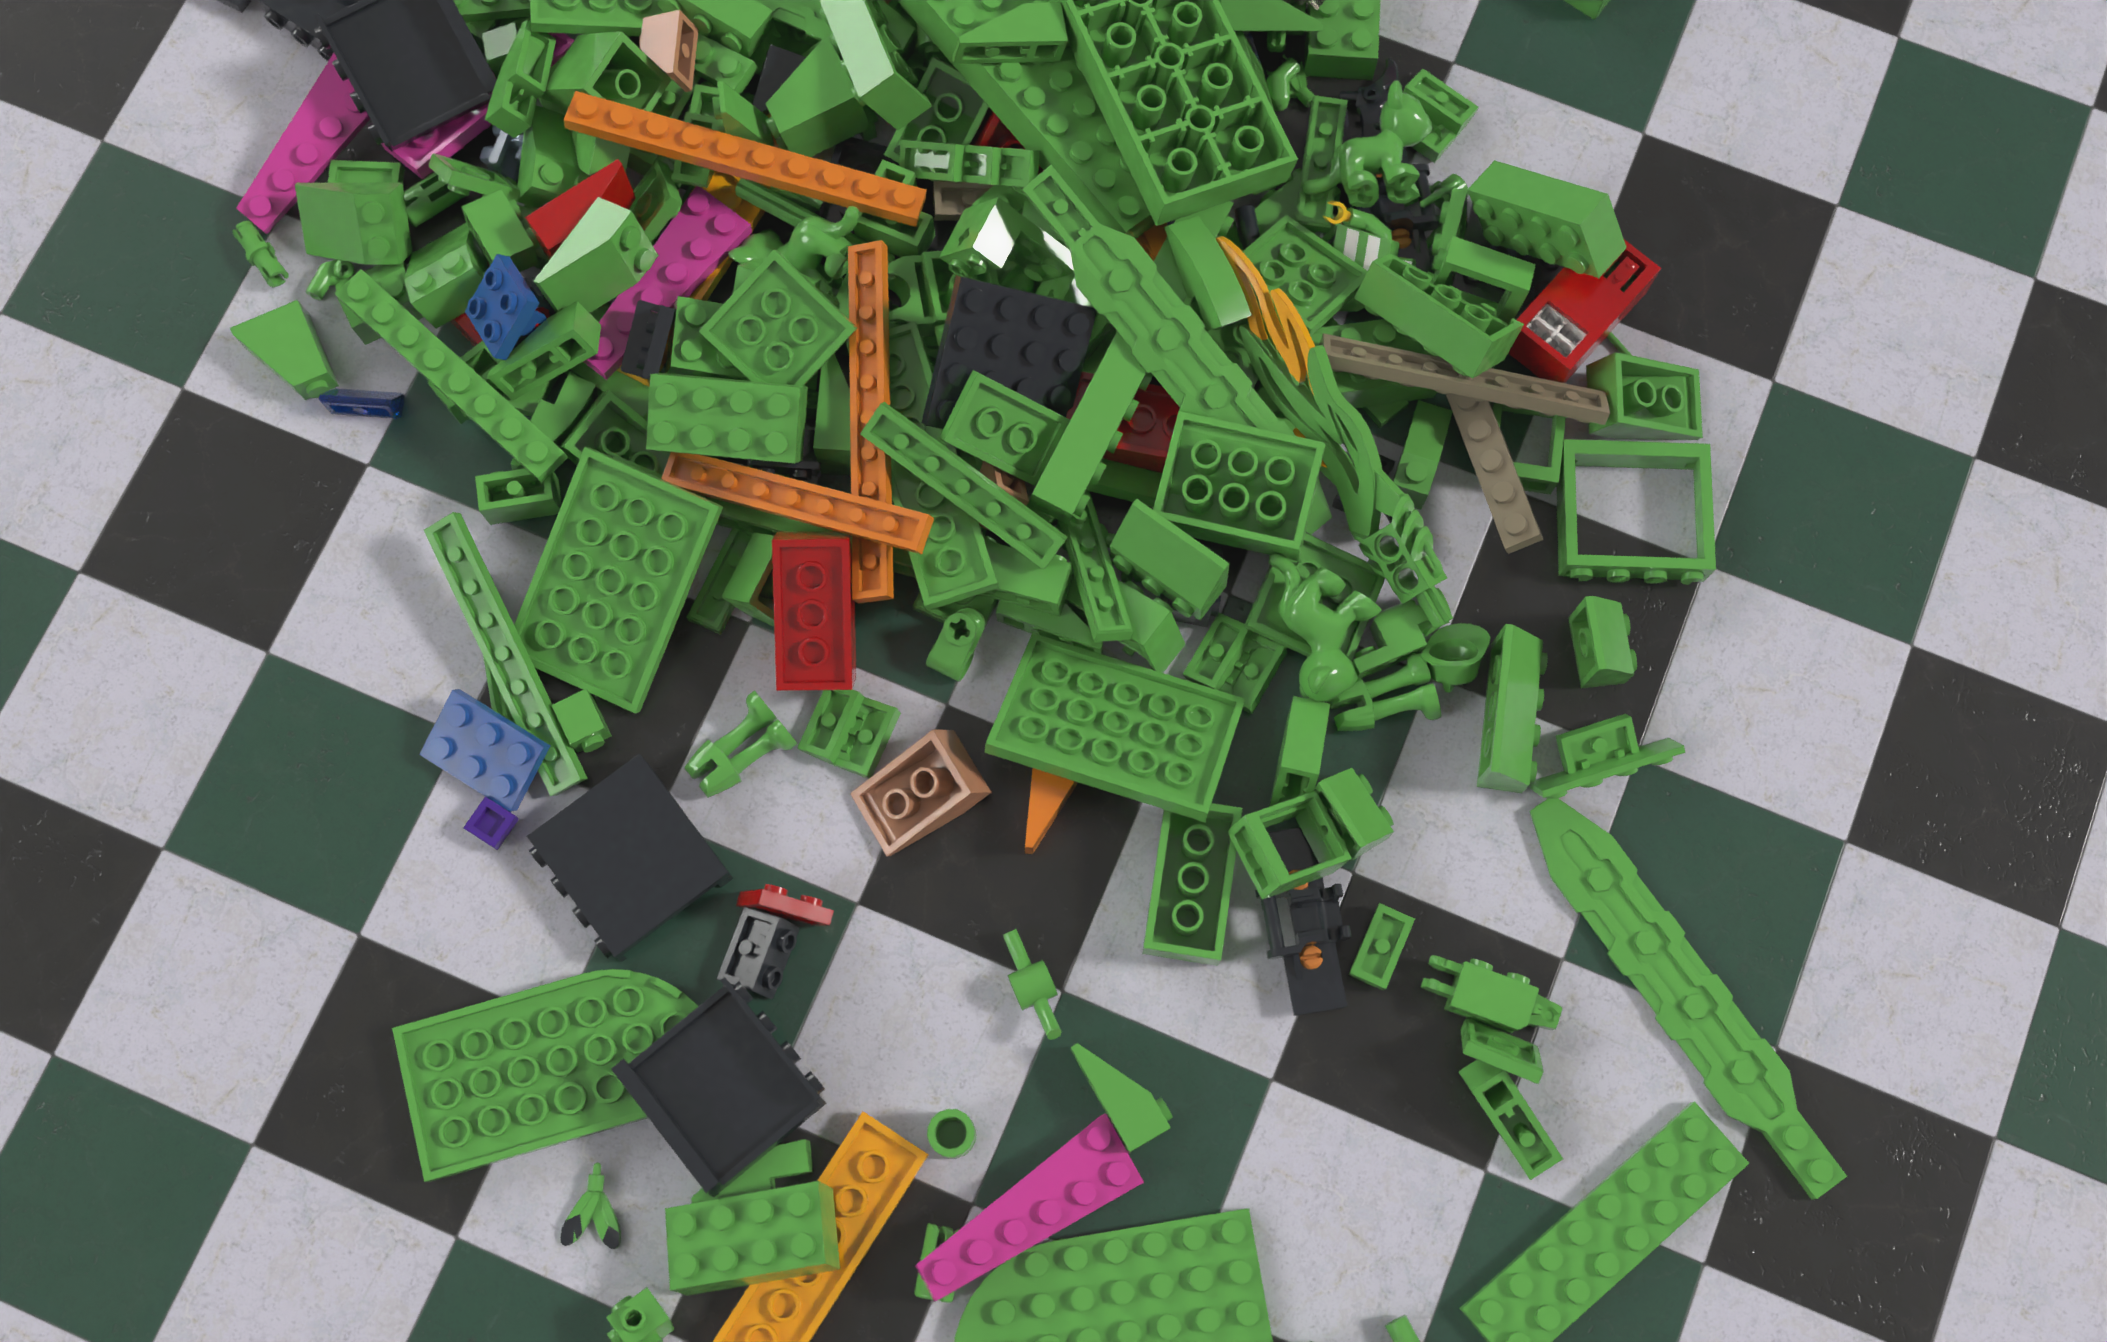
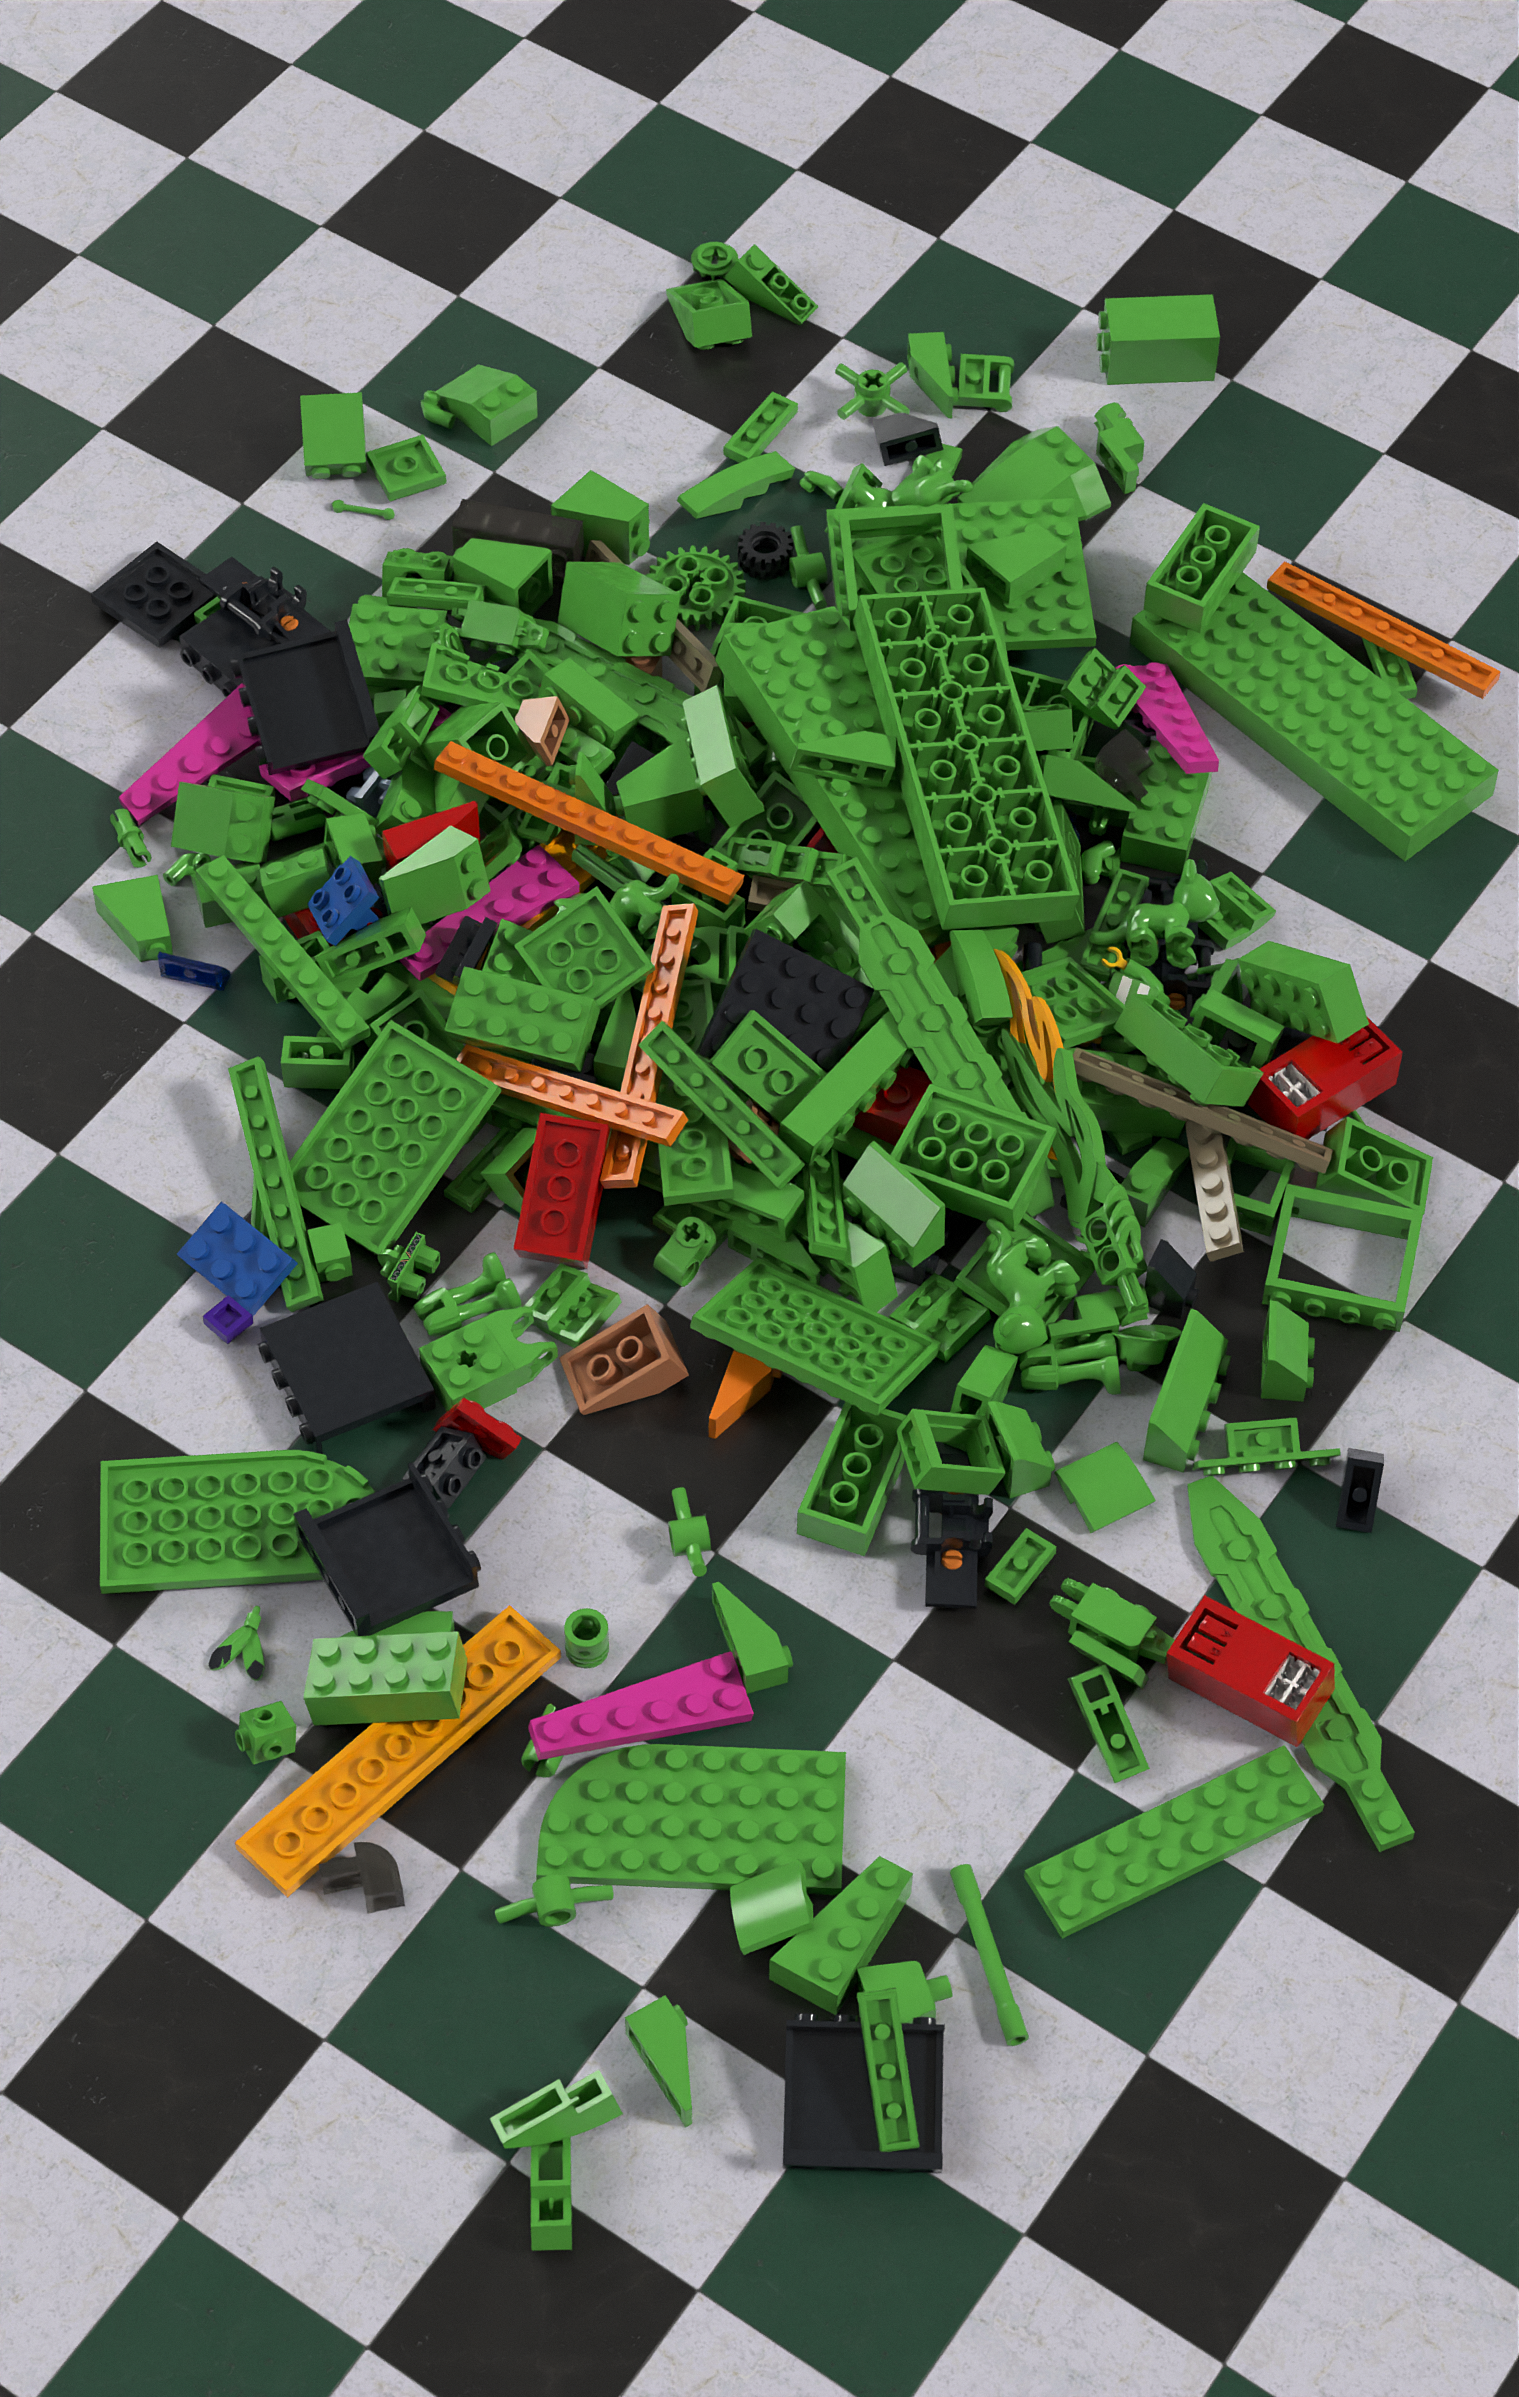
camera: 10 degrees right, 20 degrees down
(674, 706) = (401, 1264): none -> bright green hips
(780, 809) = (485, 1359): none -> bright green brick
(1447, 832) = (1104, 1486): none -> bright green slope
(1468, 580) = (1170, 1281): none -> black slope
(1651, 1033) = (1251, 1671): none -> red piece
(1709, 782) = (1360, 1490): none -> black slope

